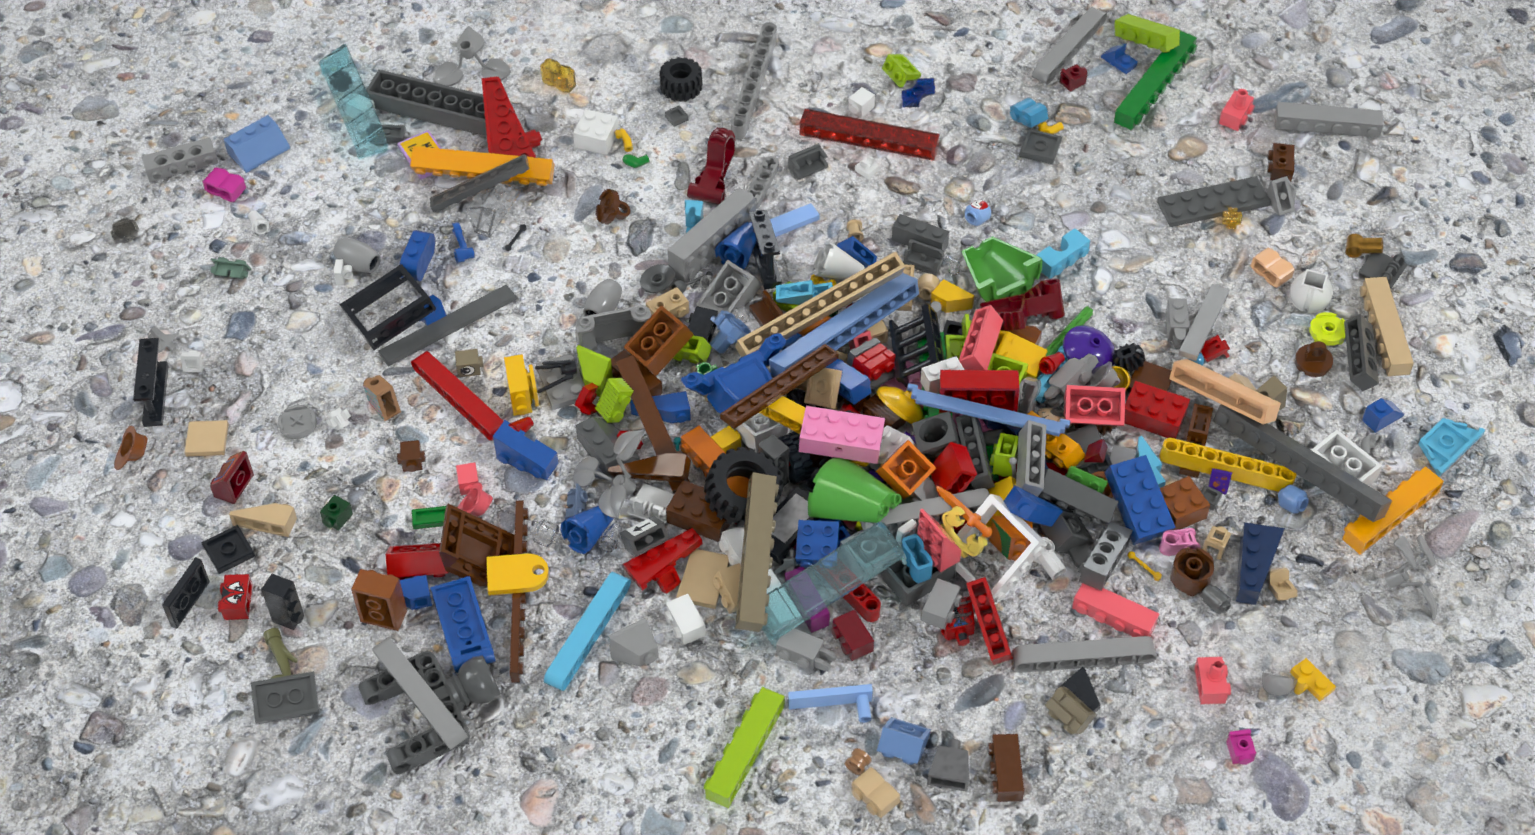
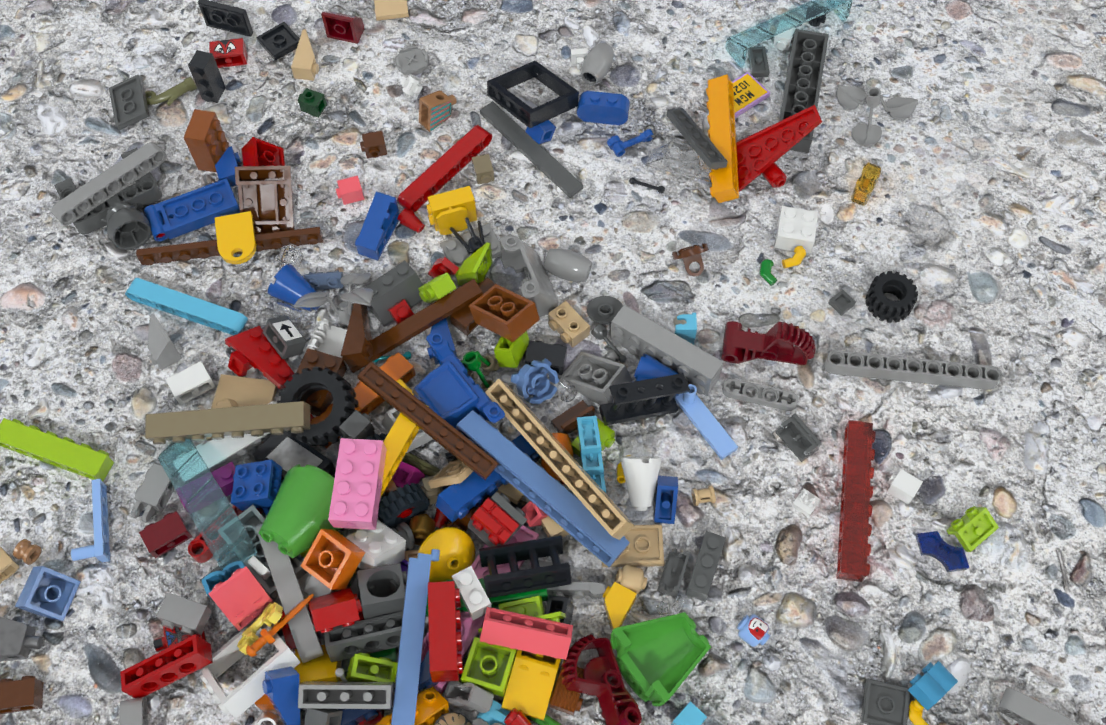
camera: 85 degrees right, 10 degrees up
(428, 517) = (313, 173): green tile -> none
(476, 501) = (320, 198): coral piece -> none

